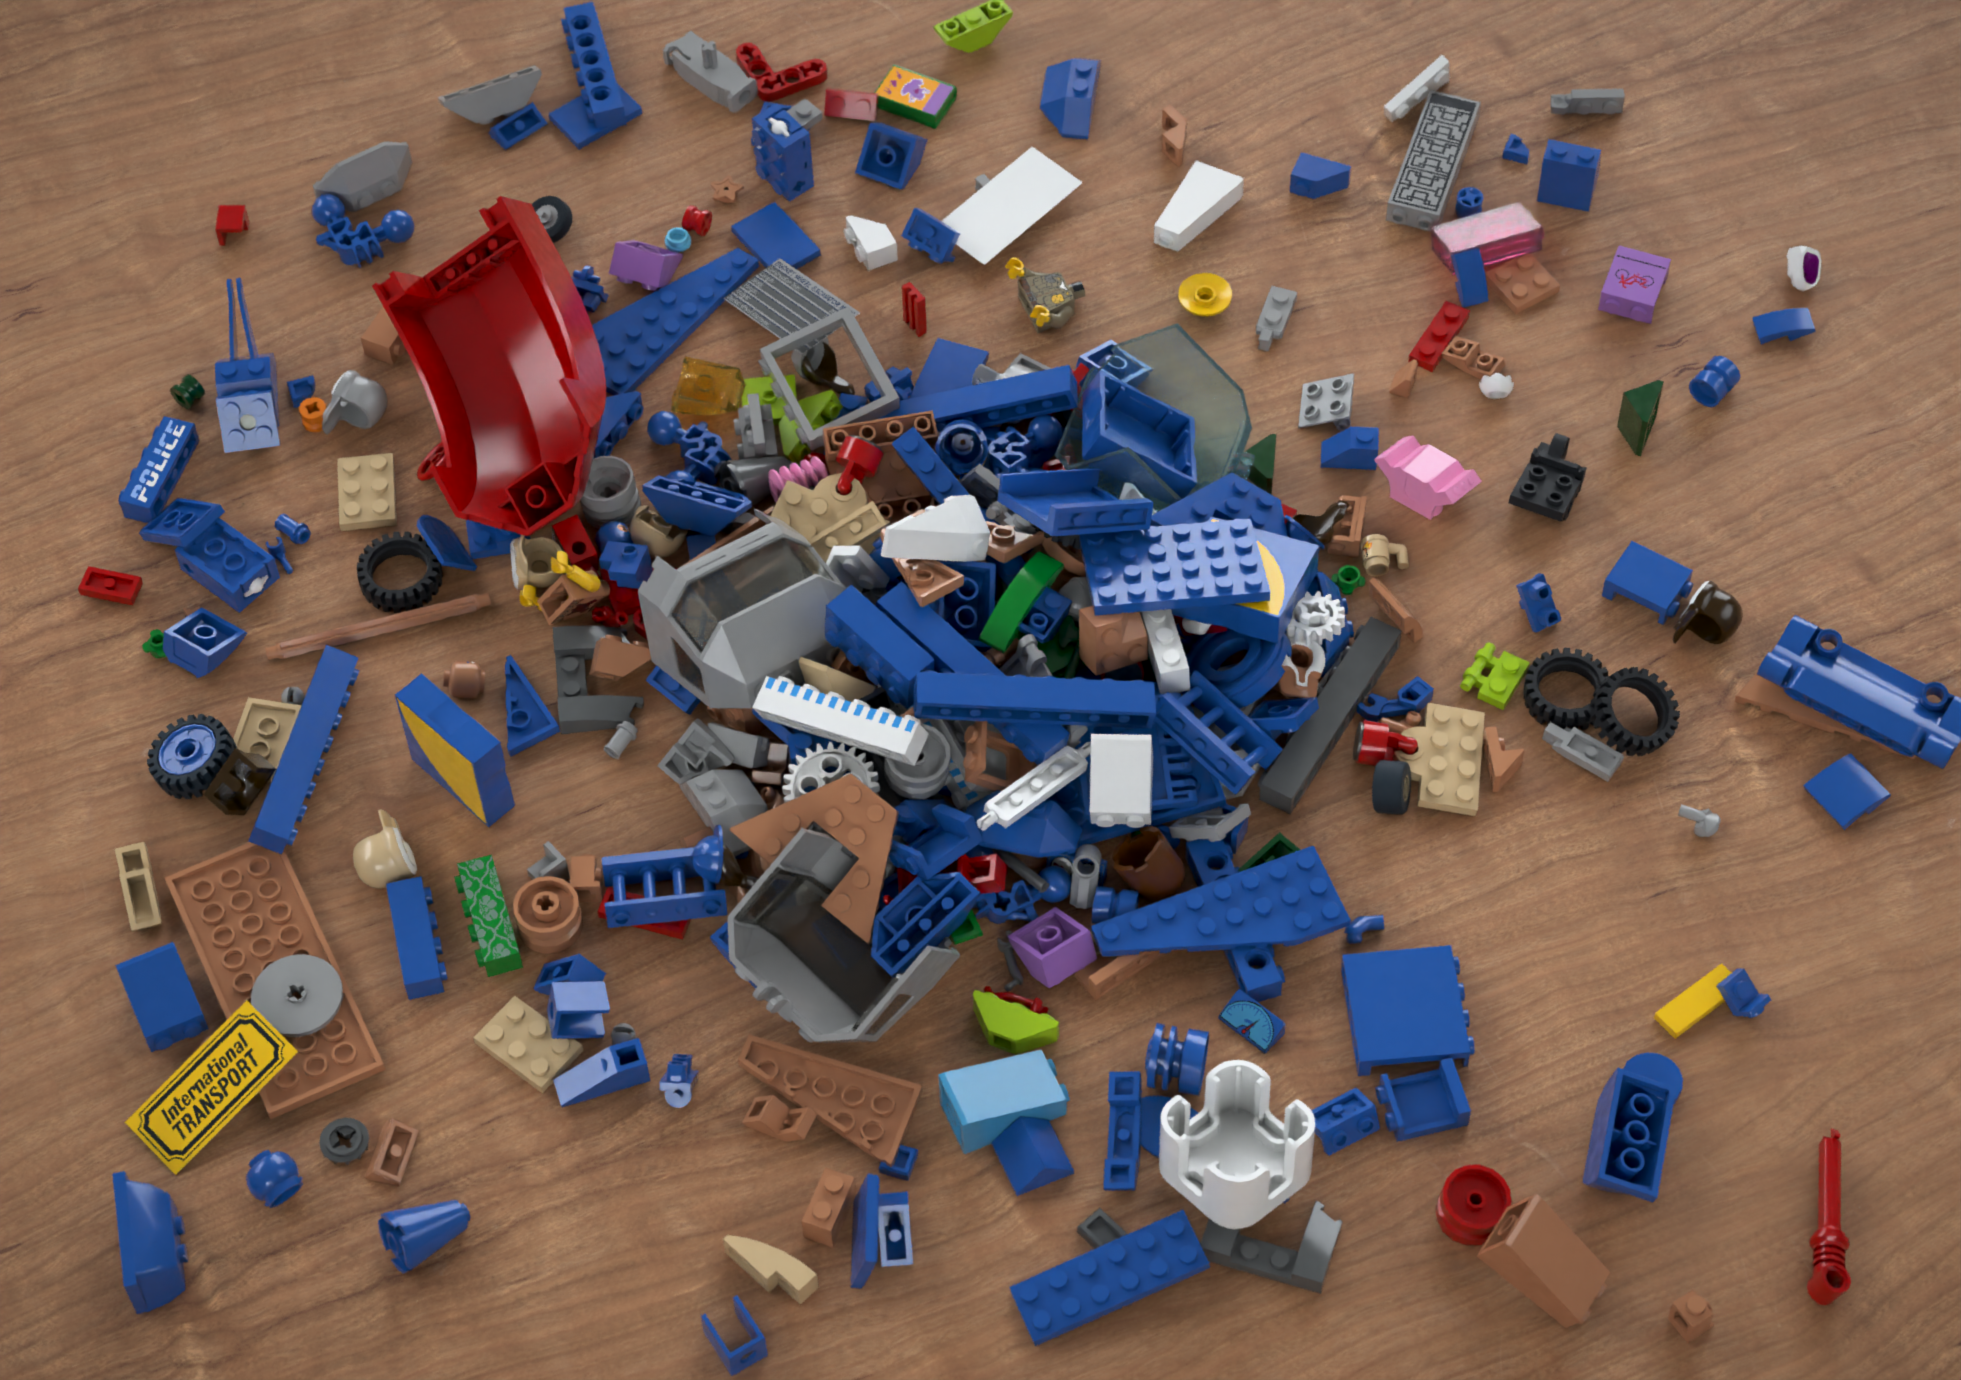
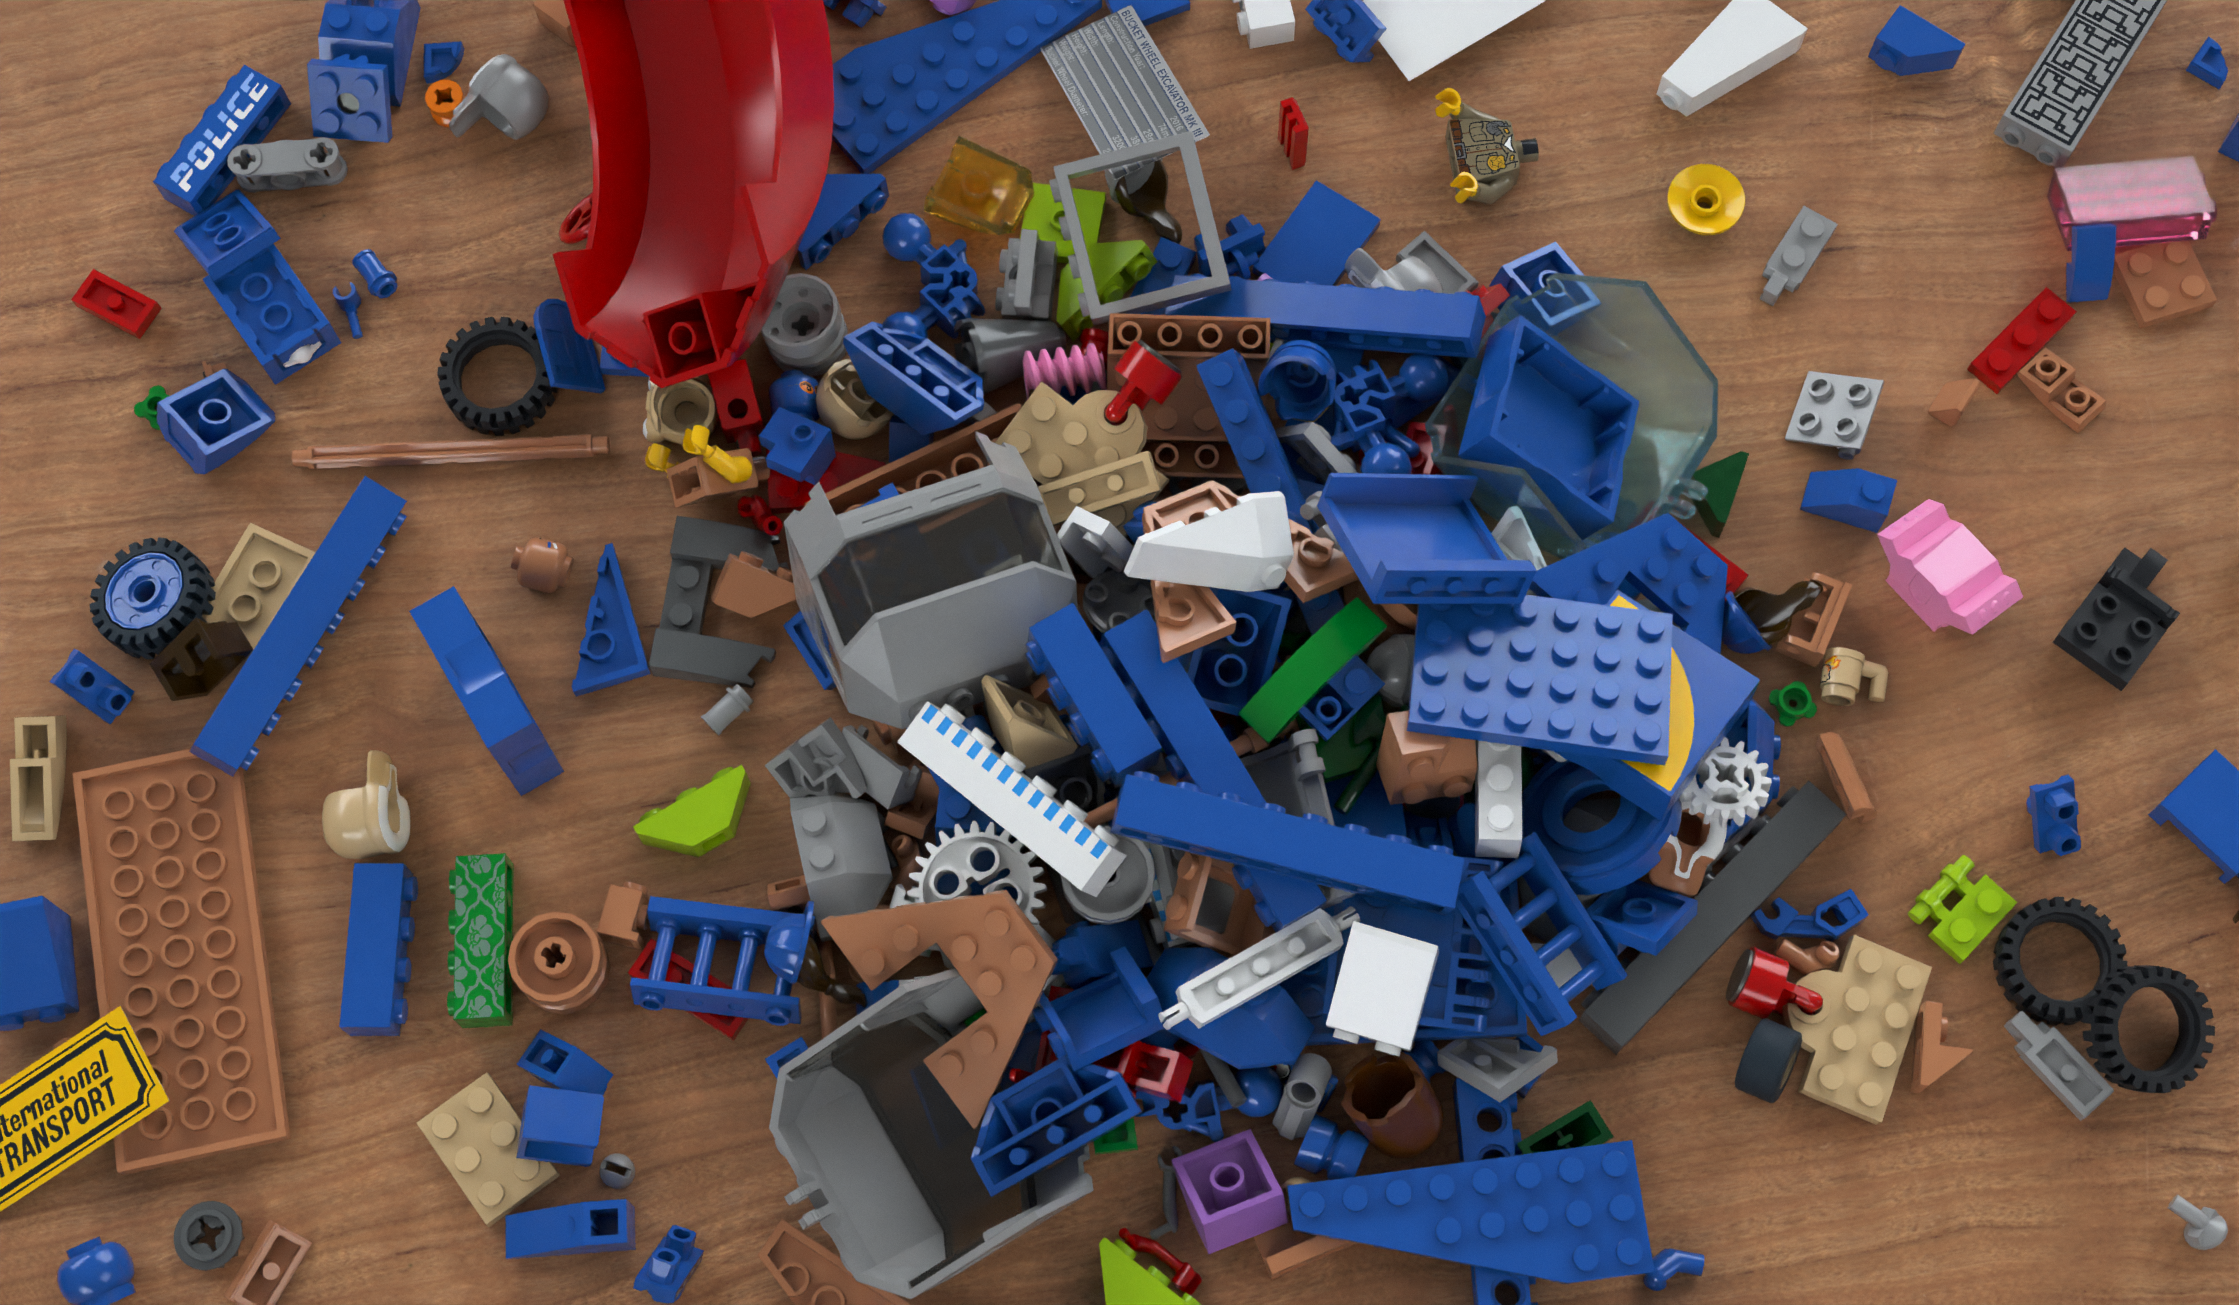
camera: 15 degrees right, 15 degrees up
(164, 820) = (92, 687): none -> blue hips
(187, 391) = (289, 29): dark green wheel -> none
(210, 474) = (287, 164): none -> light grey piece
(298, 695) = (316, 536): light grey hinge -> none
(309, 977) = (223, 1020): light grey piece -> none
(366, 492) = (488, 238): tan plate -> none
(551, 865) = (580, 889): light grey panel -> none
(618, 809) = (699, 817): none -> lime slope
(1468, 202) = (2127, 130): blue wheel -> none
(1496, 386) = (2083, 444): white plate -> none

